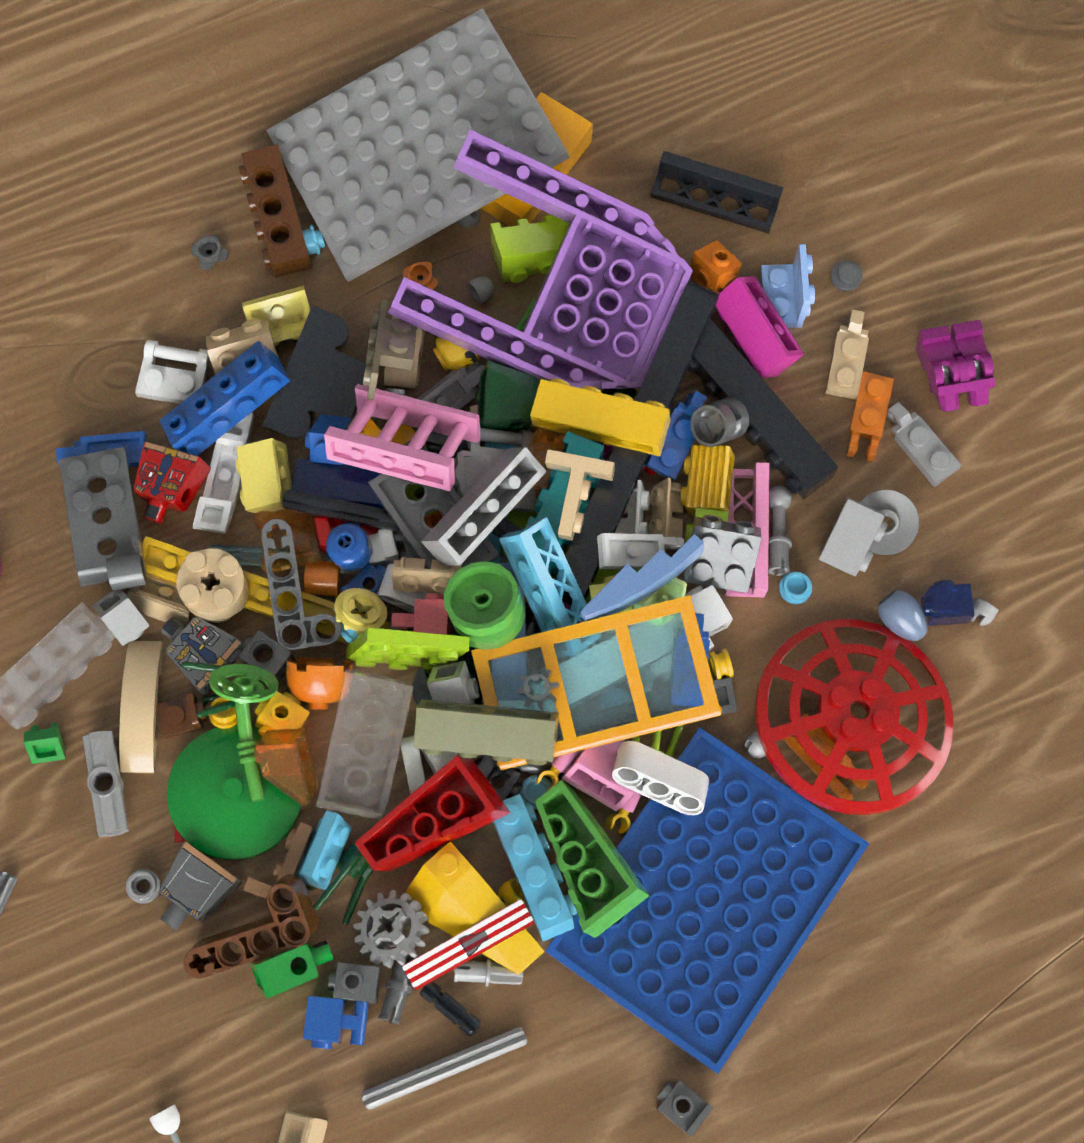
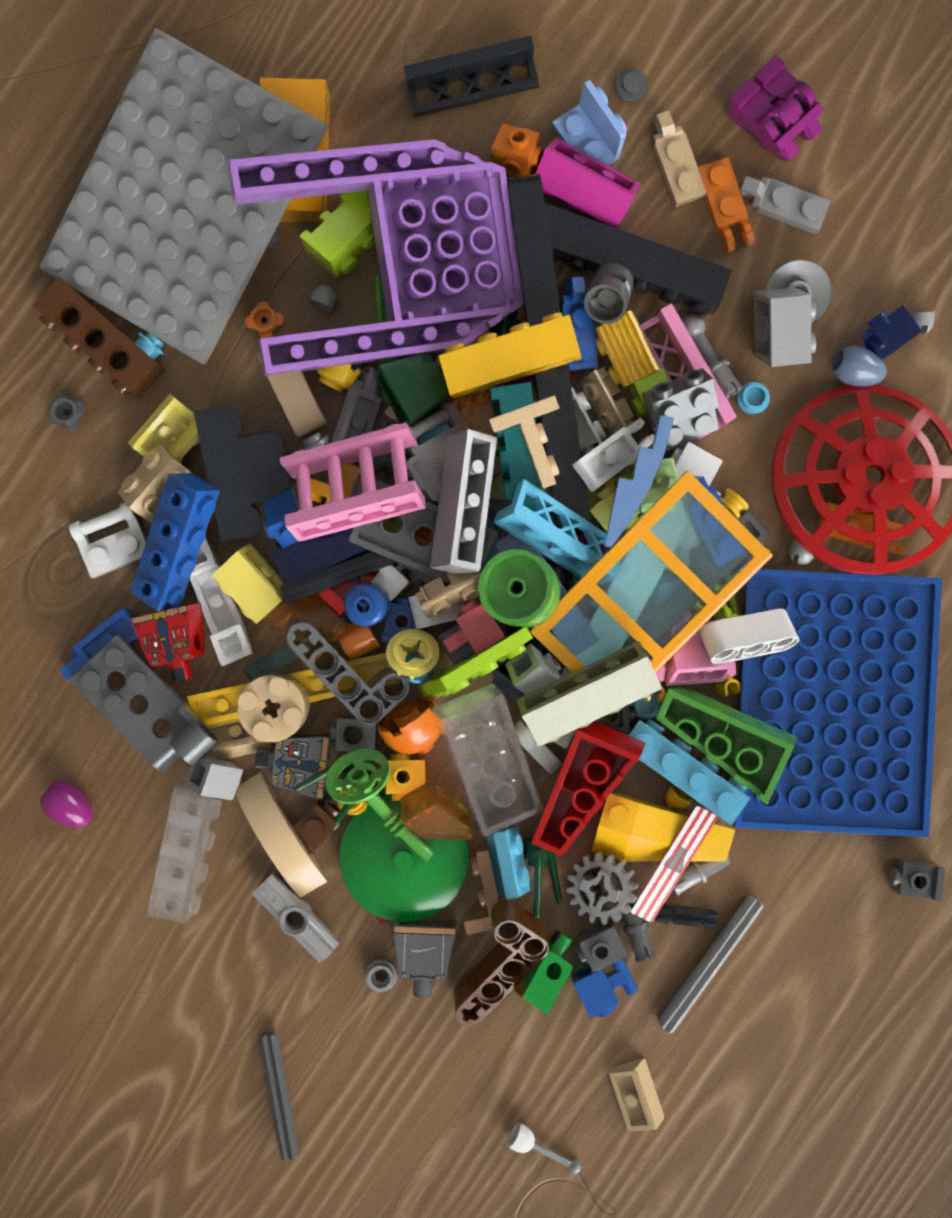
camera: 25 degrees left, 15 degrees up
(44, 744) = (225, 917): green tile -> none
(389, 345) = (288, 405): dark tan bracket -> none
(537, 678) = (616, 638): dark grey gear -> none

